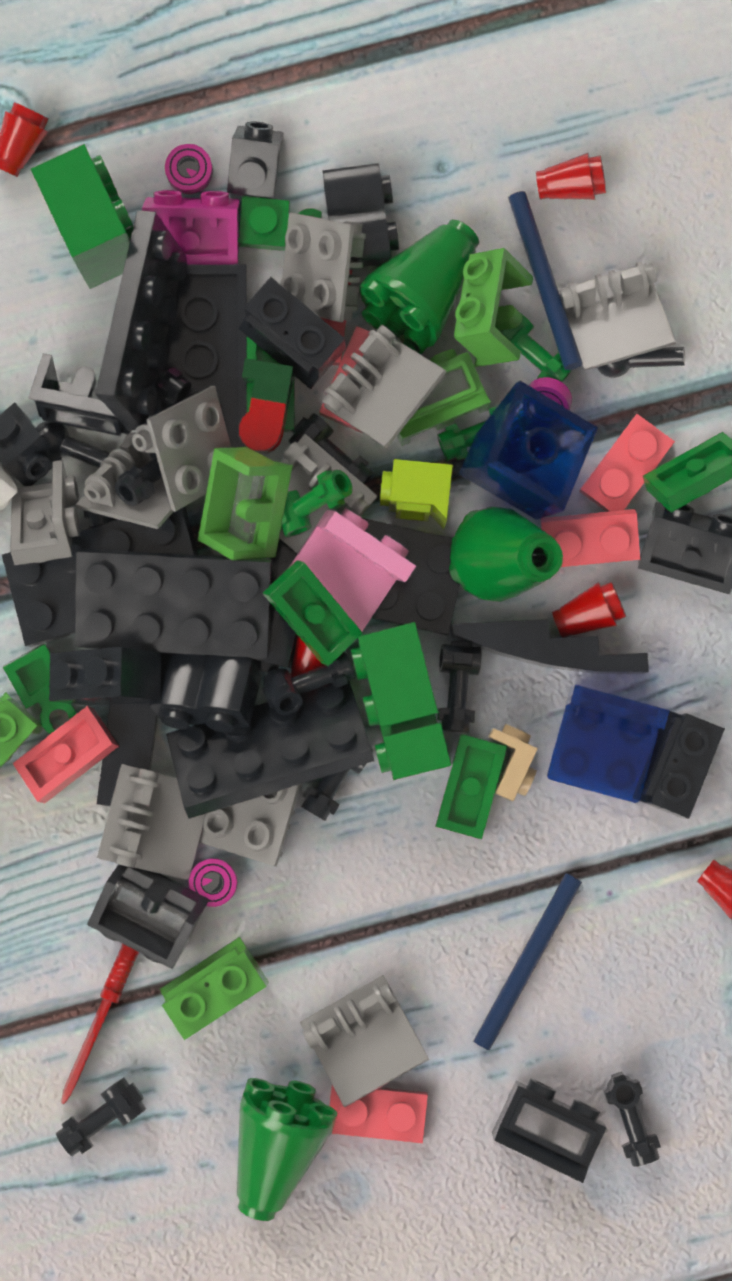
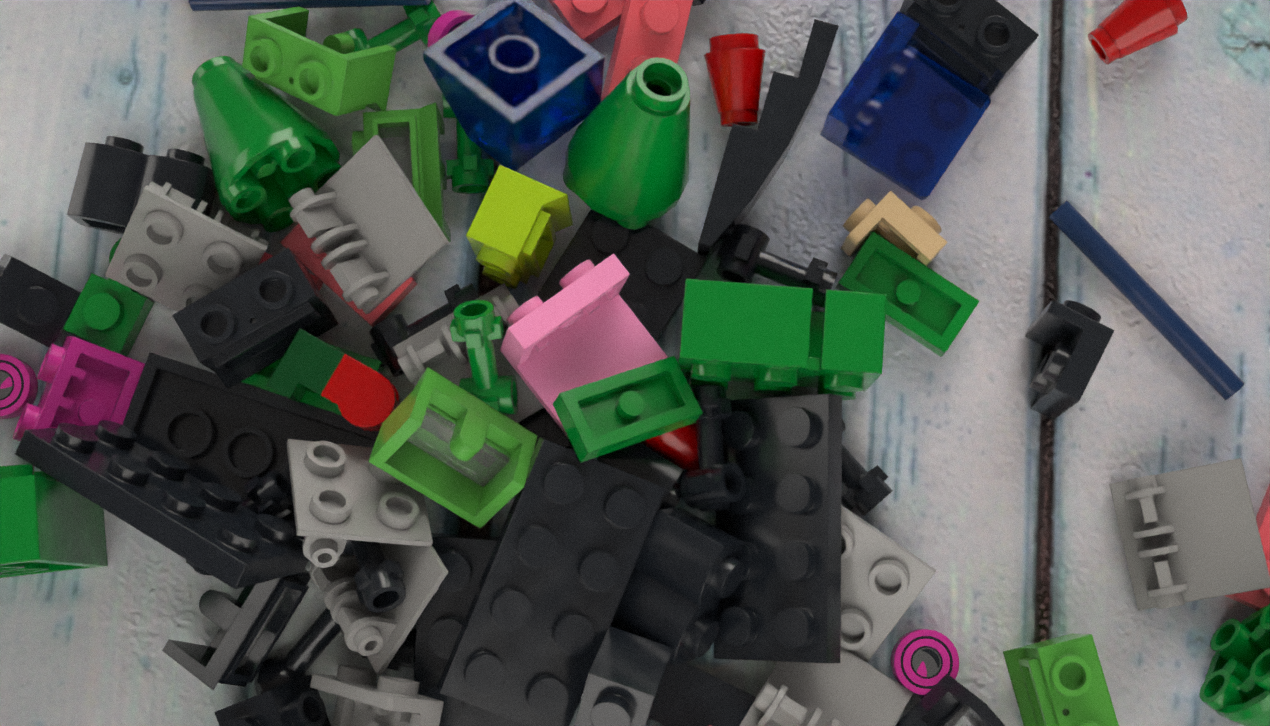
camera: 70 degrees left, 5 degrees down
(449, 913) = (1077, 347): none -> black bracket

